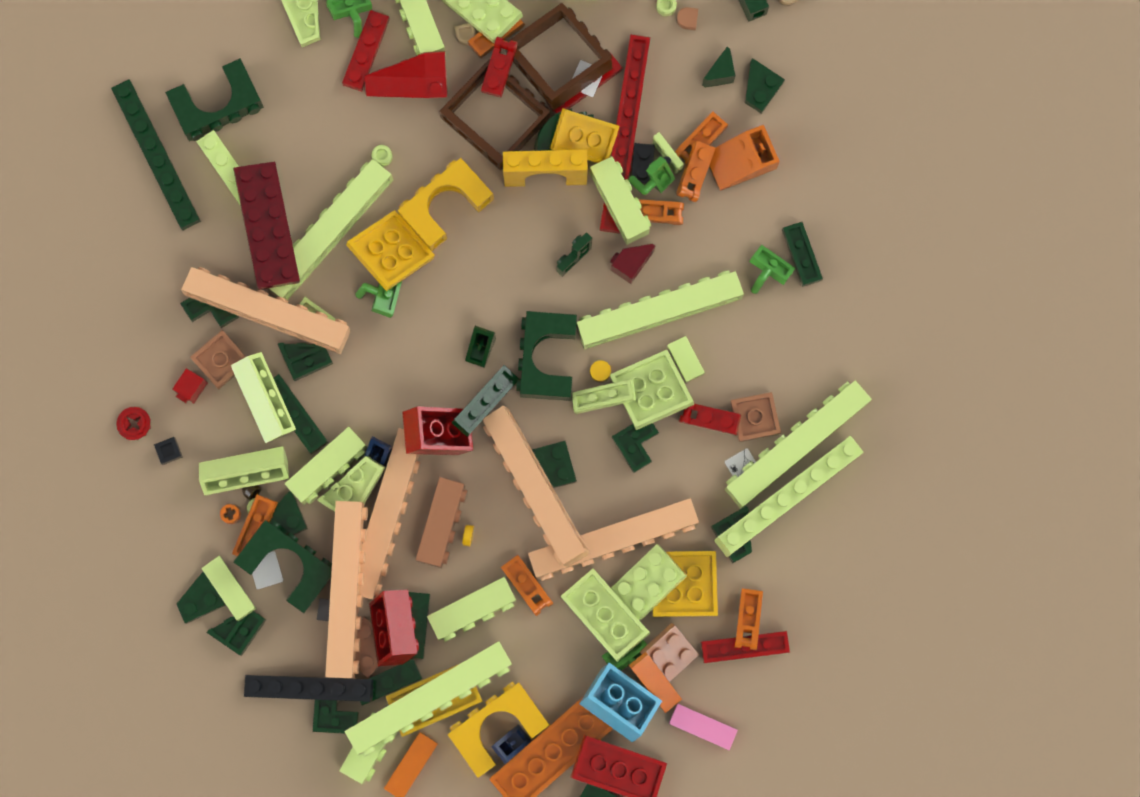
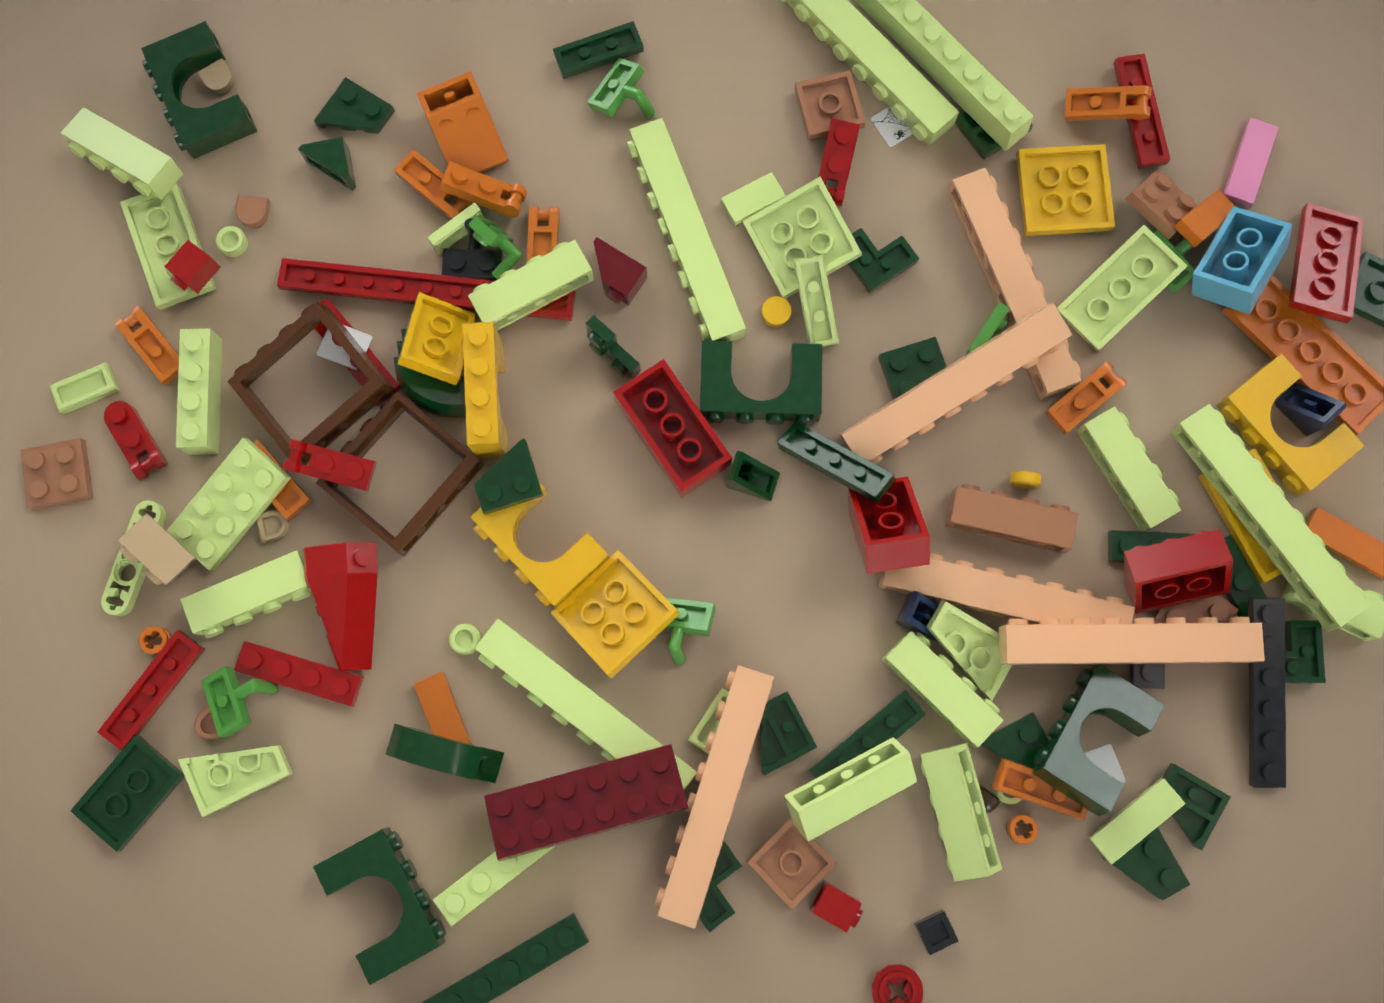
camera: 90 degrees left, 0 degrees up
(304, 136) = (444, 754): none -> dark green arch
(328, 142) = (441, 708): none -> orange tile
(483, 182) = (509, 481): none -> dark green wing
(516, 292) = (672, 428): none -> red brick
(583, 523) = (994, 324): none -> bright green plate
(648, 582) = (1070, 232): yellowish green plate -> none

